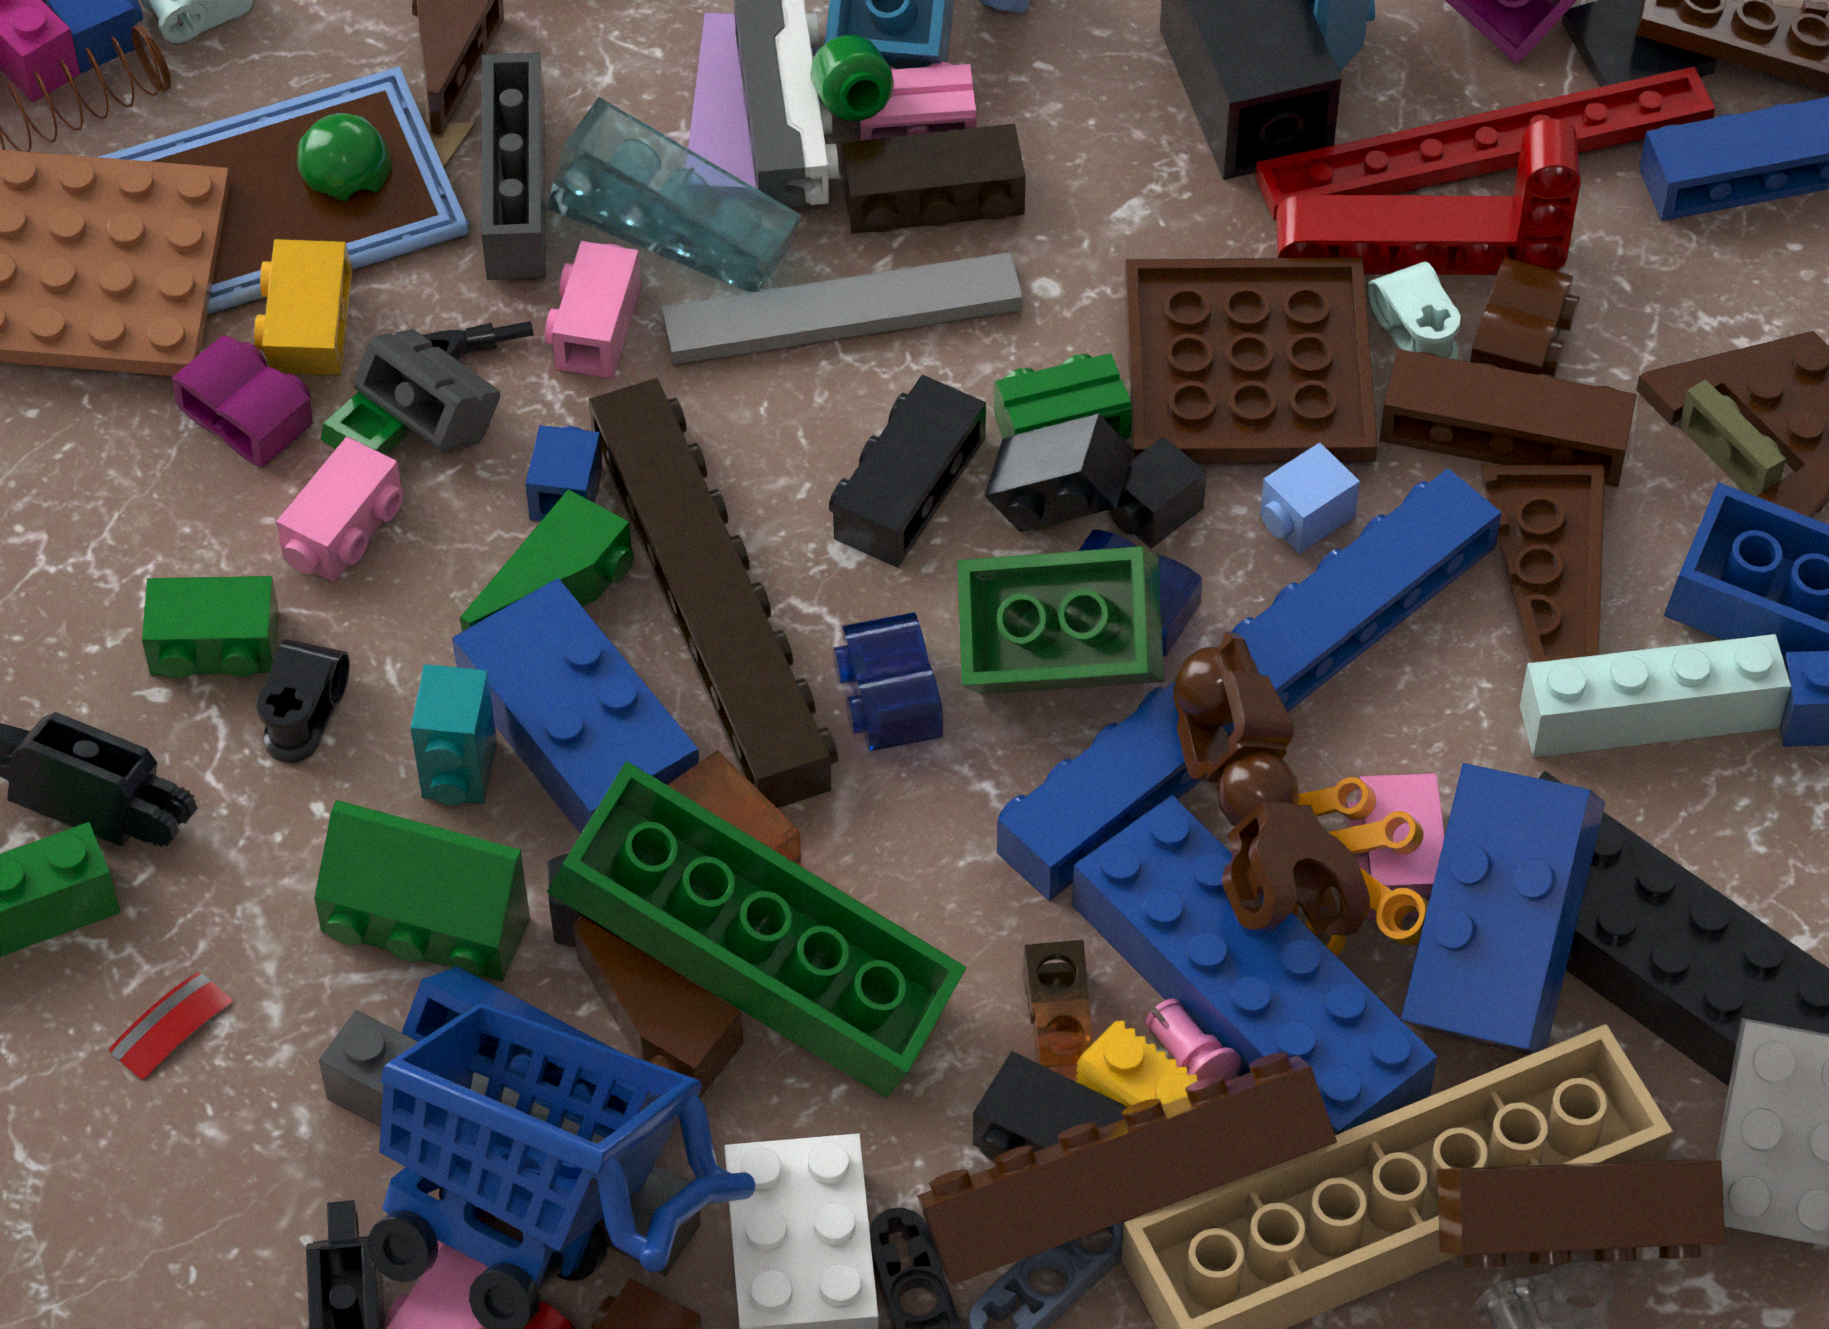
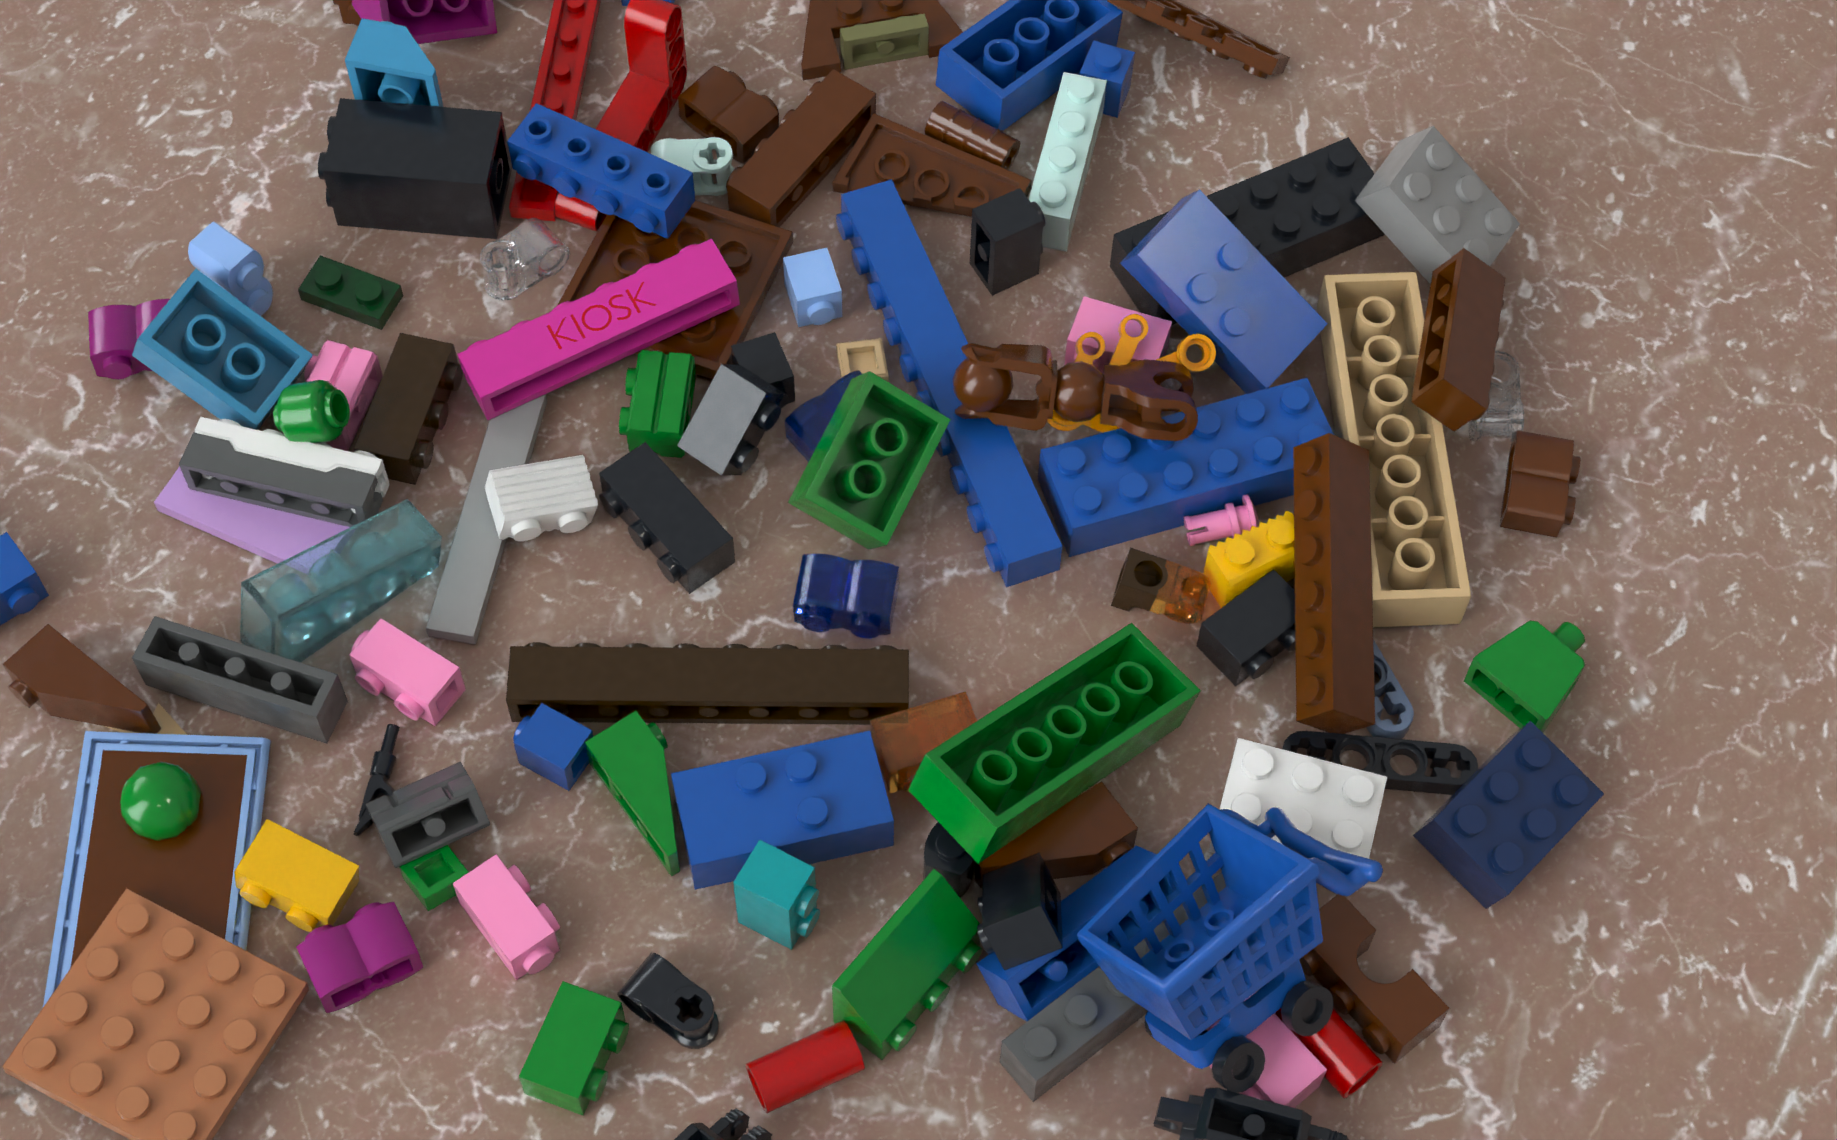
camera: 70 degrees left, 5 degrees up
(266, 845) = (805, 1066): none -> red pin
(526, 973) = (1020, 912): none -> black brick
(868, 338) = (541, 498): none -> white brick
(1069, 74) = (350, 292): none -> dark green plate
(1119, 302) = (599, 328): none -> dark pink brick
(1196, 207) = (525, 254): none -> clear piece
(1235, 592) = (862, 356): none -> tan tile
(1330, 217) = (601, 171): none -> blue brick
(1474, 663) = (1006, 241): none -> black brick
(1635, 586) = (971, 135): none -> reddish brown axle

